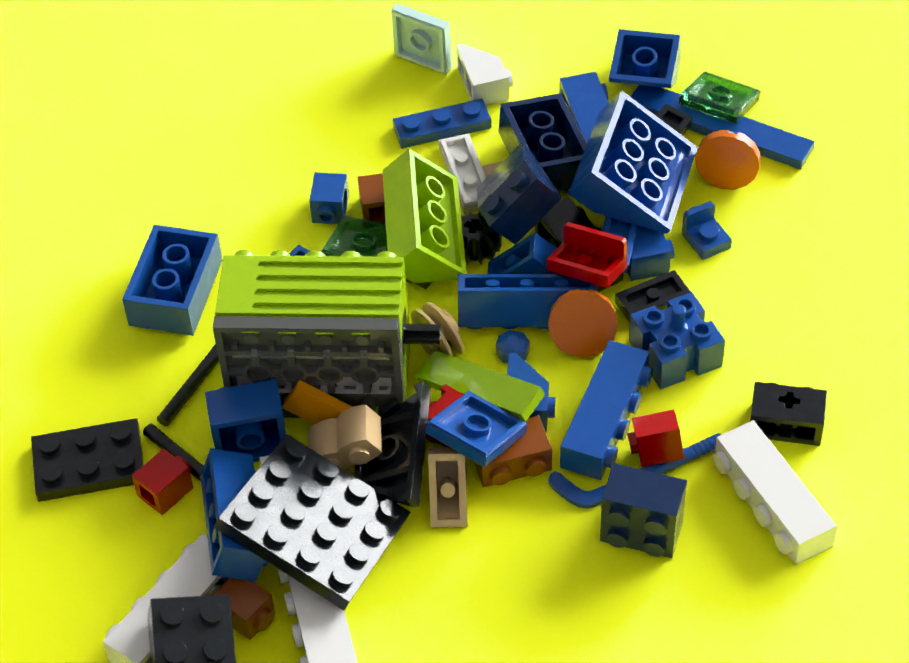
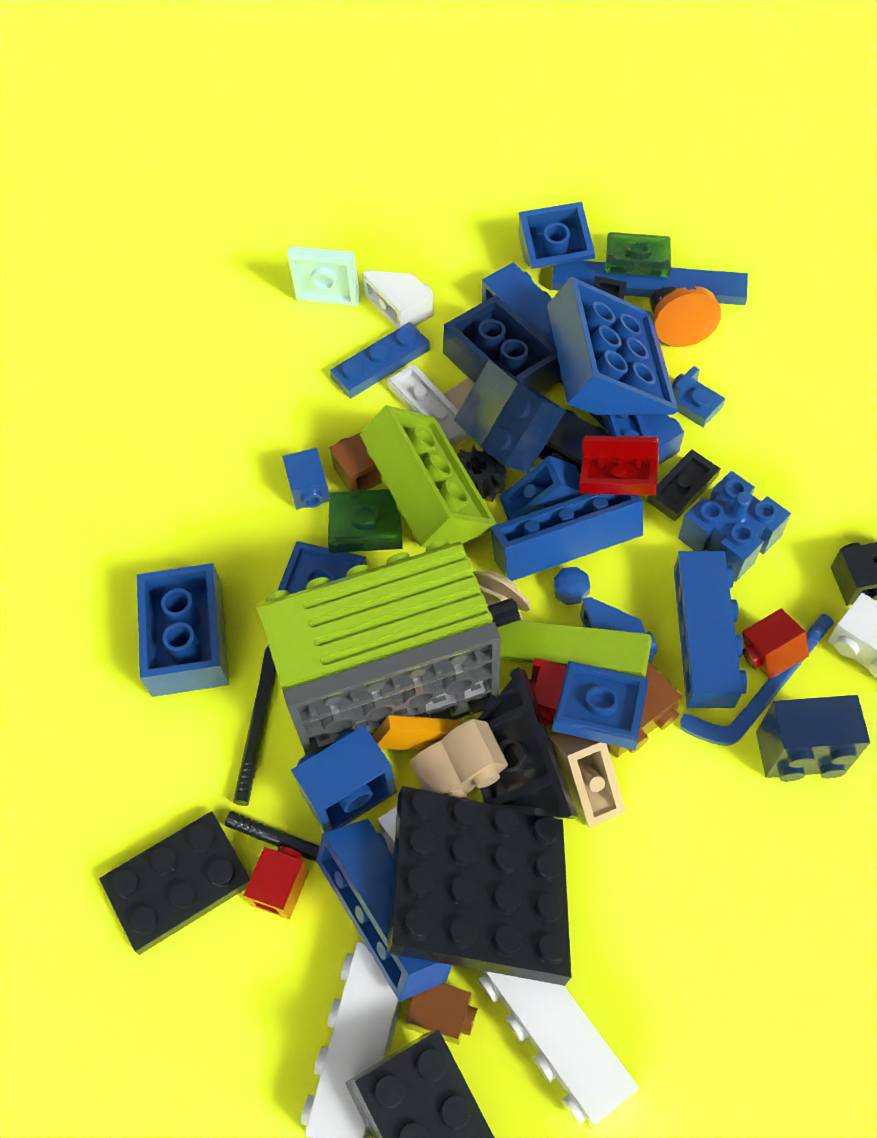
camera: 20 degrees left, 10 degrees up
(582, 322) = (637, 538): orange tile -> none

